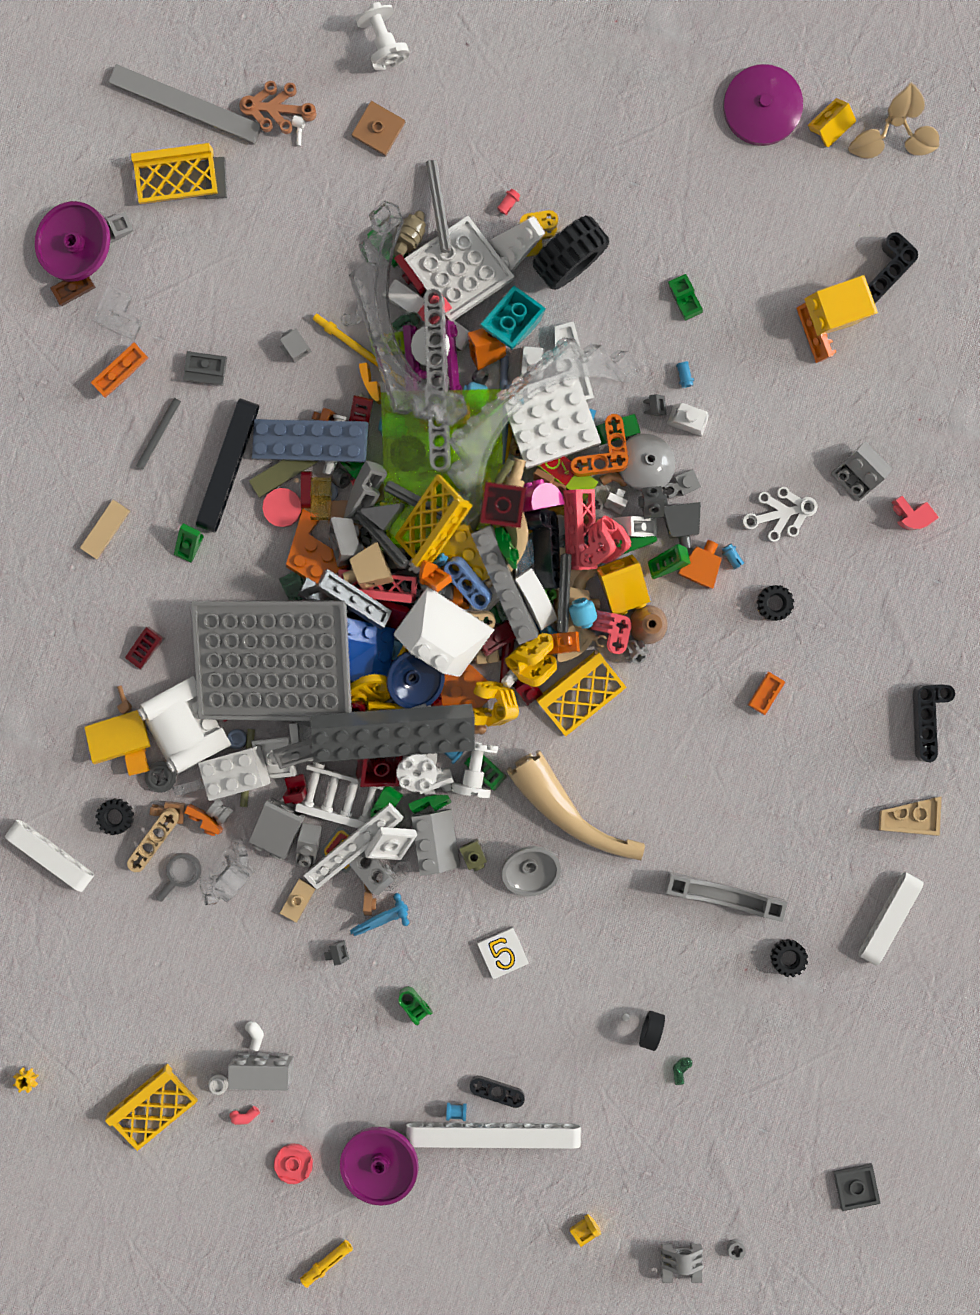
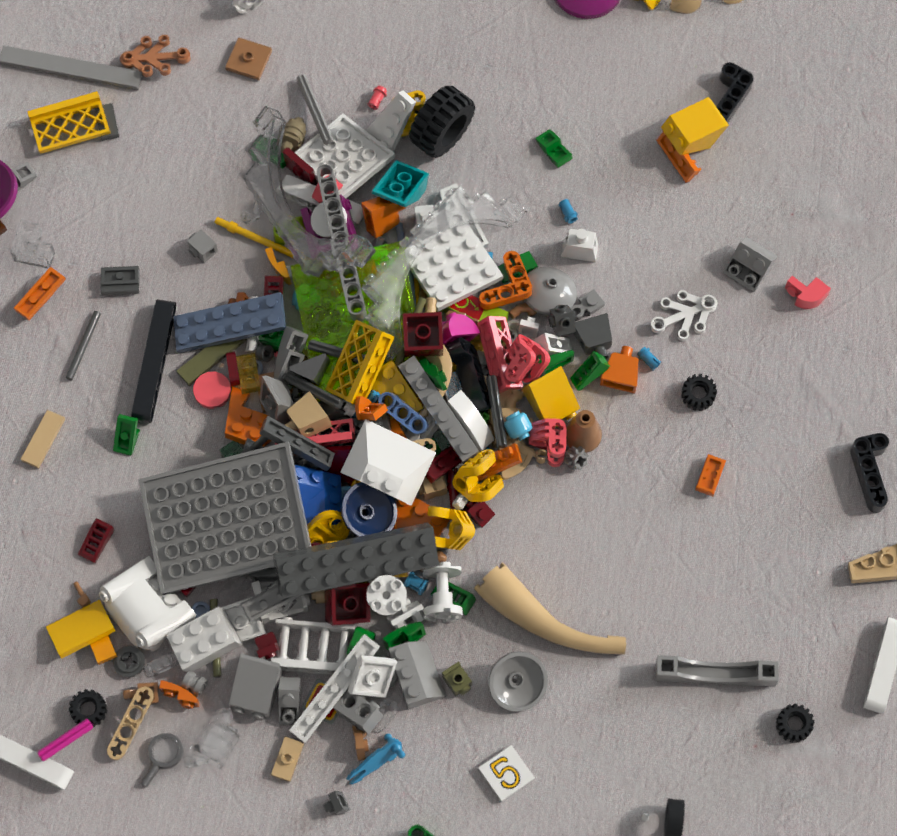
camera: 15 degrees left, 20 degrees down
(87, 848) = (65, 739): none -> dark pink axle
(299, 123) = (175, 65): white hand -> none
(404, 319) = (307, 201): clear green arm -> none
(572, 678) = (522, 493): yellow fence -> none
(657, 405) = (548, 239): dark grey tile -> none

